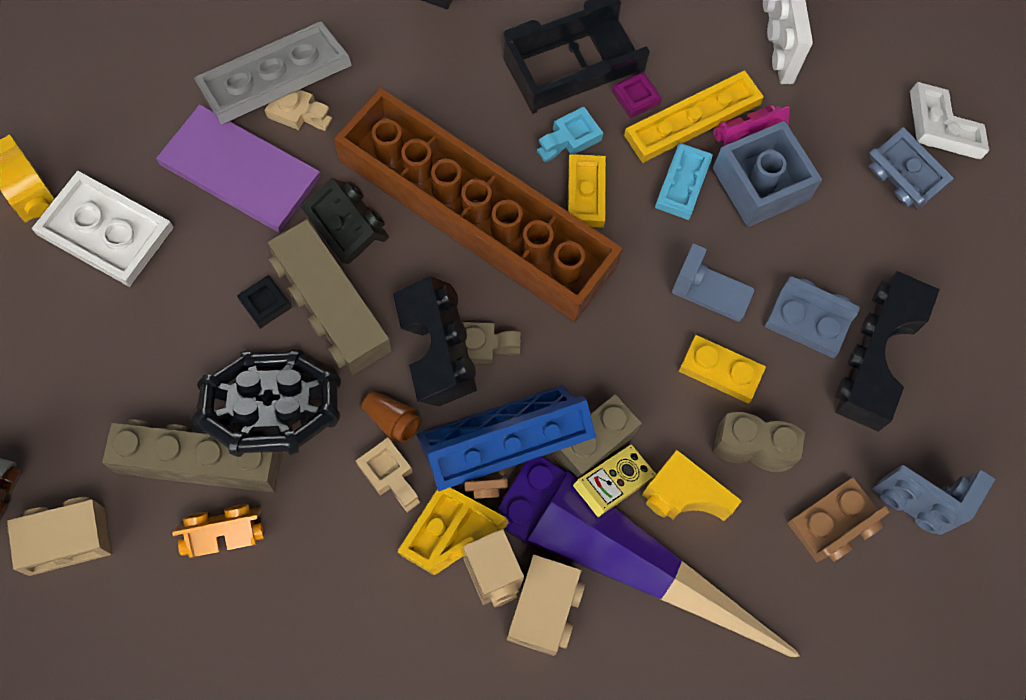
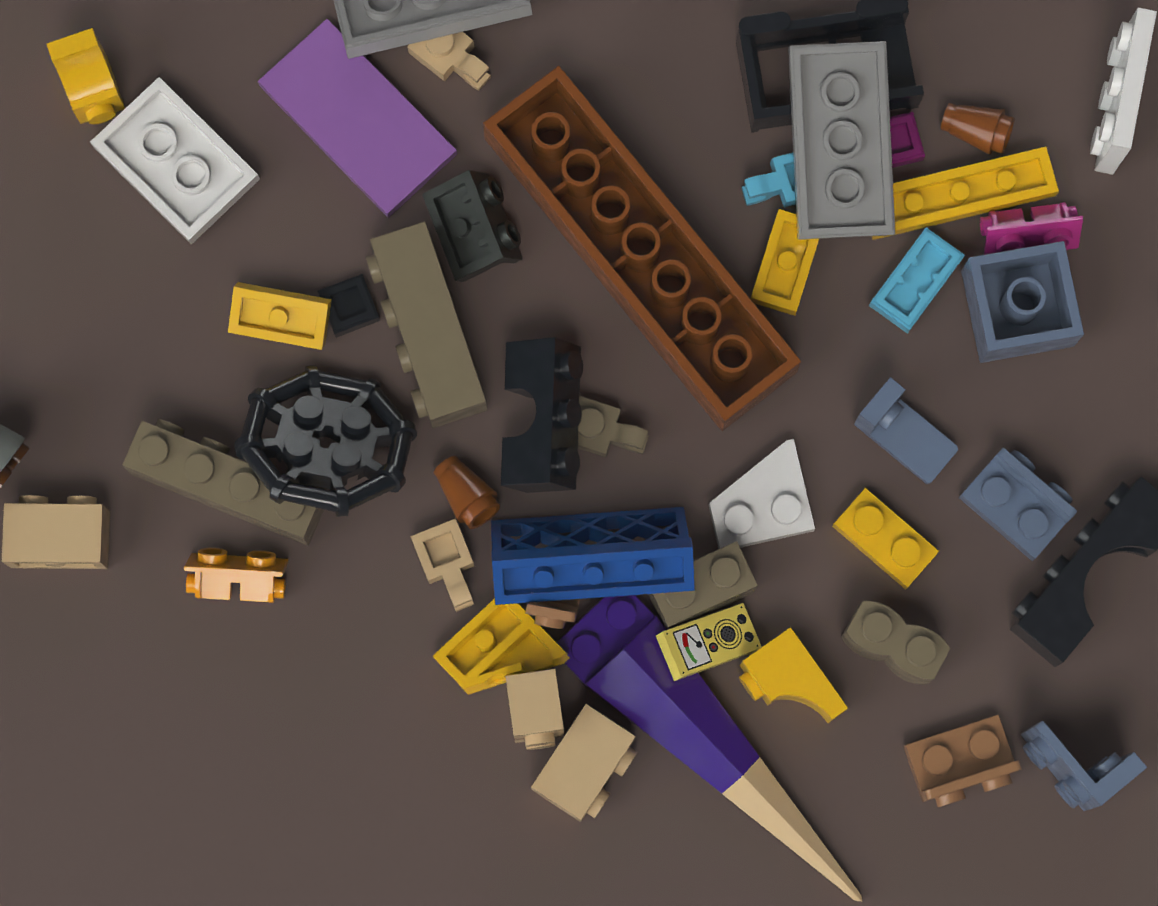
camera: 20 degrees right, 10 degrees up
(210, 320) = (279, 315): none -> yellow plate
(602, 93) = (841, 140): none -> light grey tile
(623, 365) = (764, 502): none -> white wing
(692, 70) = (979, 126): none -> dark orange cone

